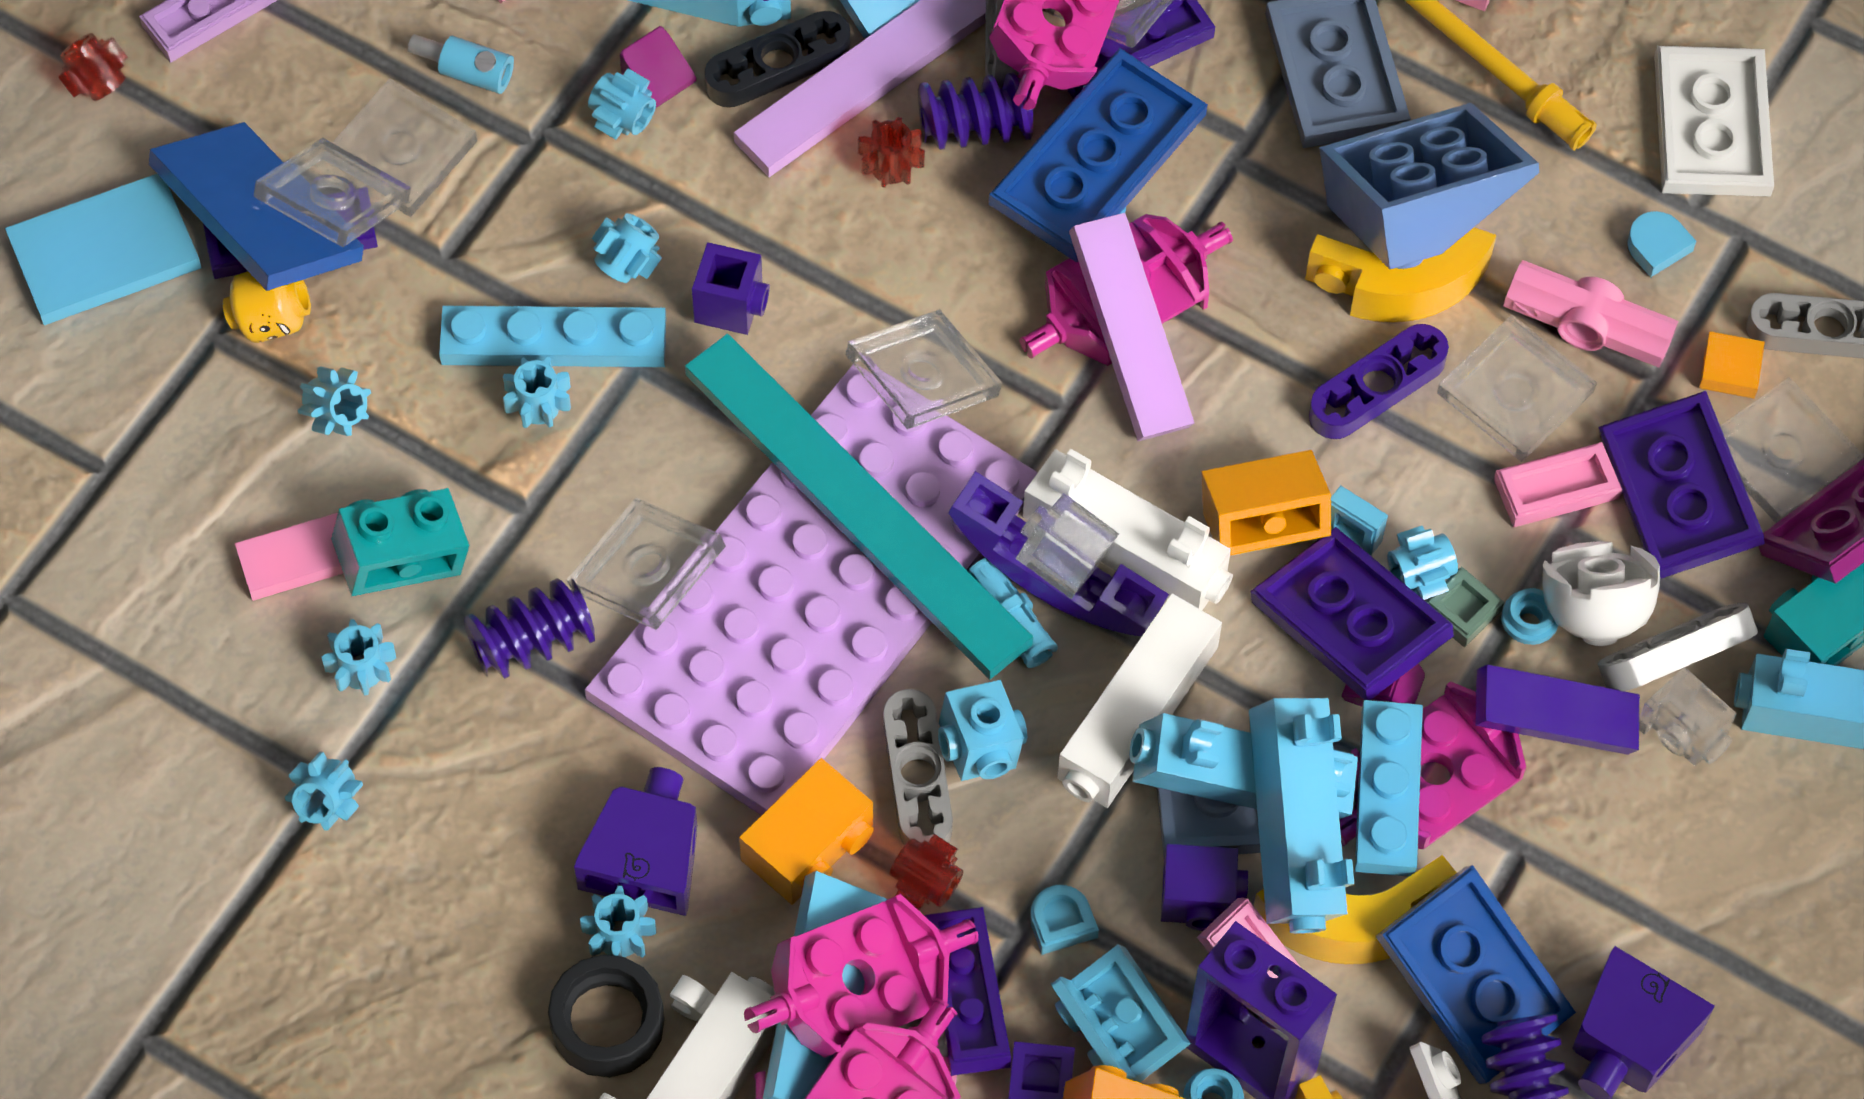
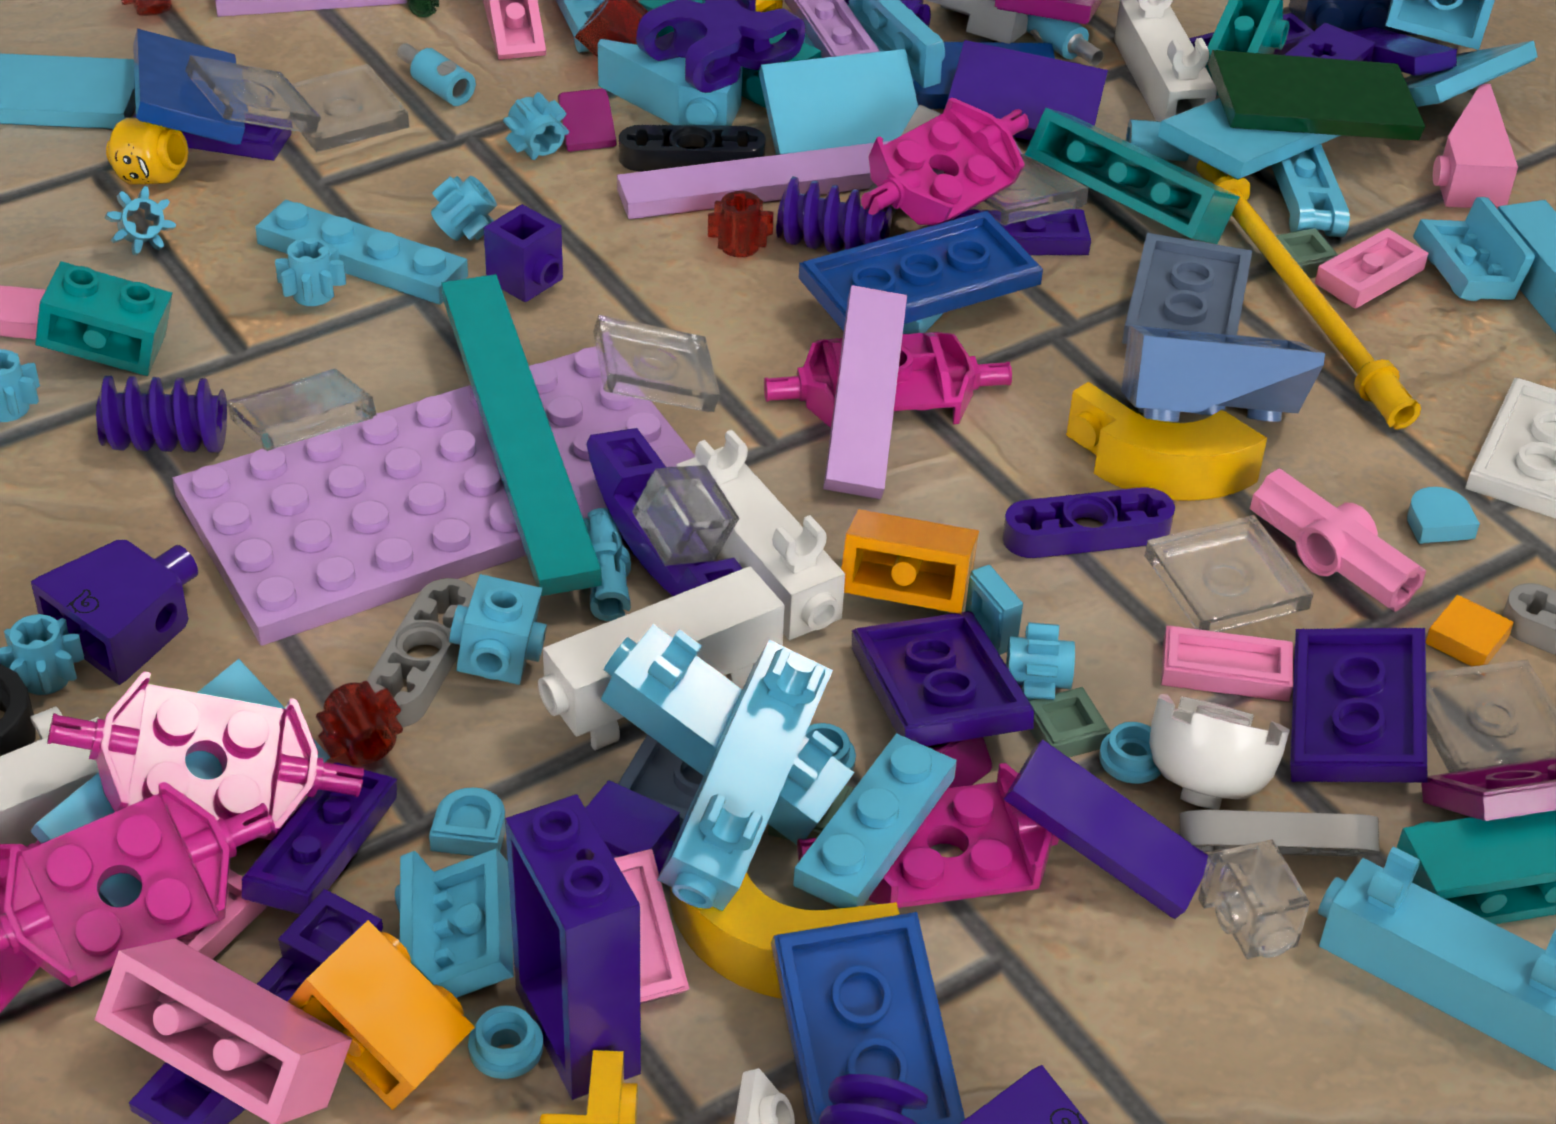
camera: 25 degrees right, 20 degrees down
(807, 830) = (286, 642): light orange brick -> none

